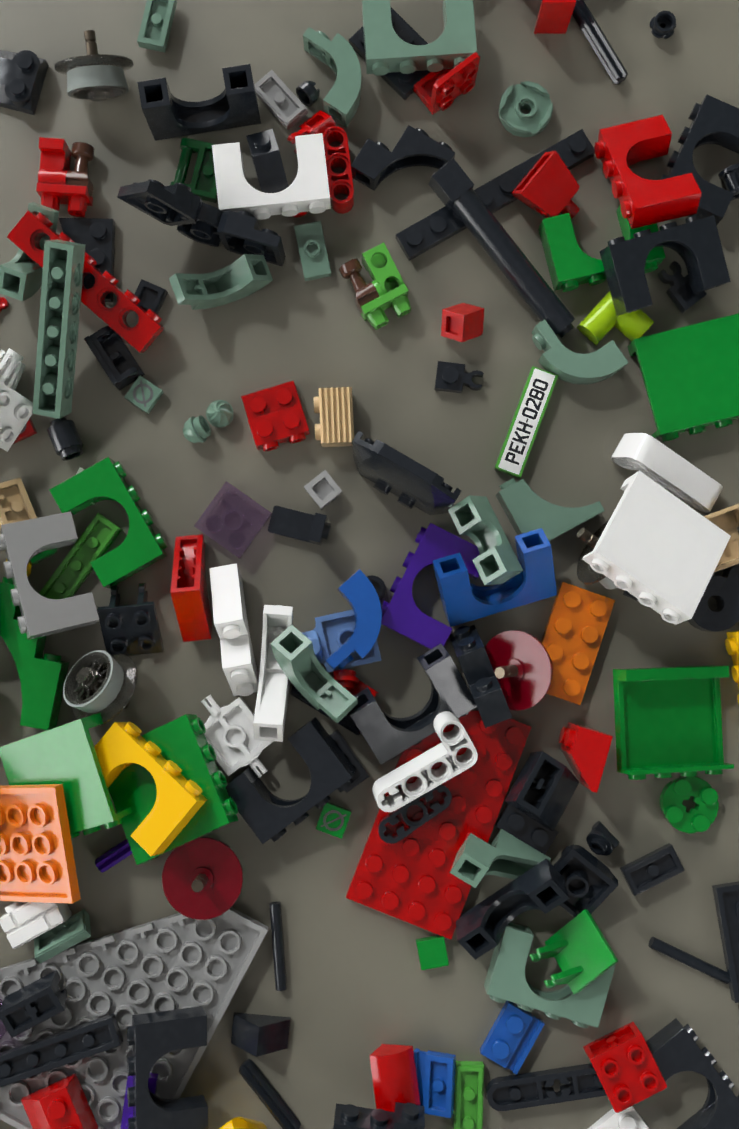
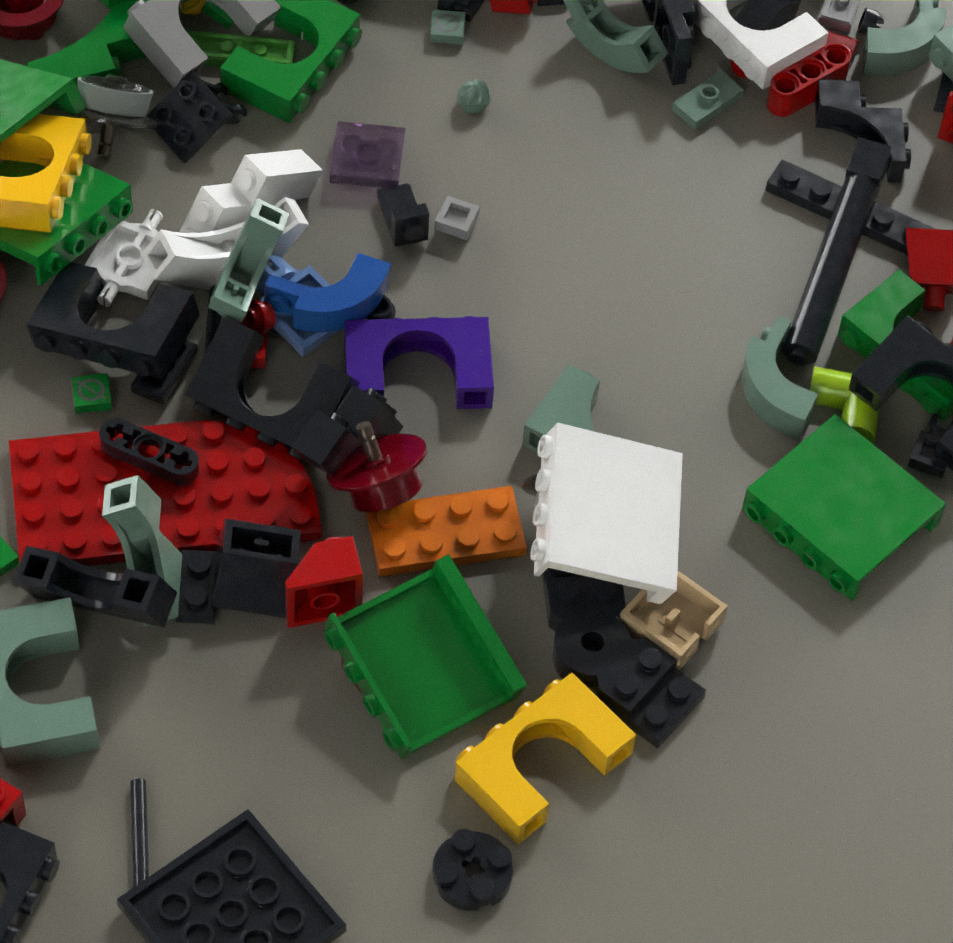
camera: 60 degrees right, 30 degrees down
(190, 588) = (266, 130): red arch -> none
(196, 429) = (443, 82): sand green plate -> none
(275, 416) = (506, 145): red plate -> none
(336, 417) = (544, 193): tan brick -> none
(383, 292) = (709, 175): bright green hips -> none
(402, 476) = (516, 258): black wedge -> none
(422, 764) = (208, 425): white beam -> none
(452, 377) = (669, 283): black plate -> none
(462, 322) = (733, 259): red panel -> none
(469, 602) = (422, 392): blue arch -> none
(478, 521) = (490, 375): sand green arch -> none
(526, 422) = (668, 371): tile -> none
(579, 953) = (69, 677): green plate -> none
(585, 878) = (168, 657): black slope -> none
(601, 840) = (232, 667): black plate -> none
(652, 869) = (228, 735): black plate -> none
(668, 469) = (713, 522): white beam -> none
(700, 816) = (337, 722): green plate -> none

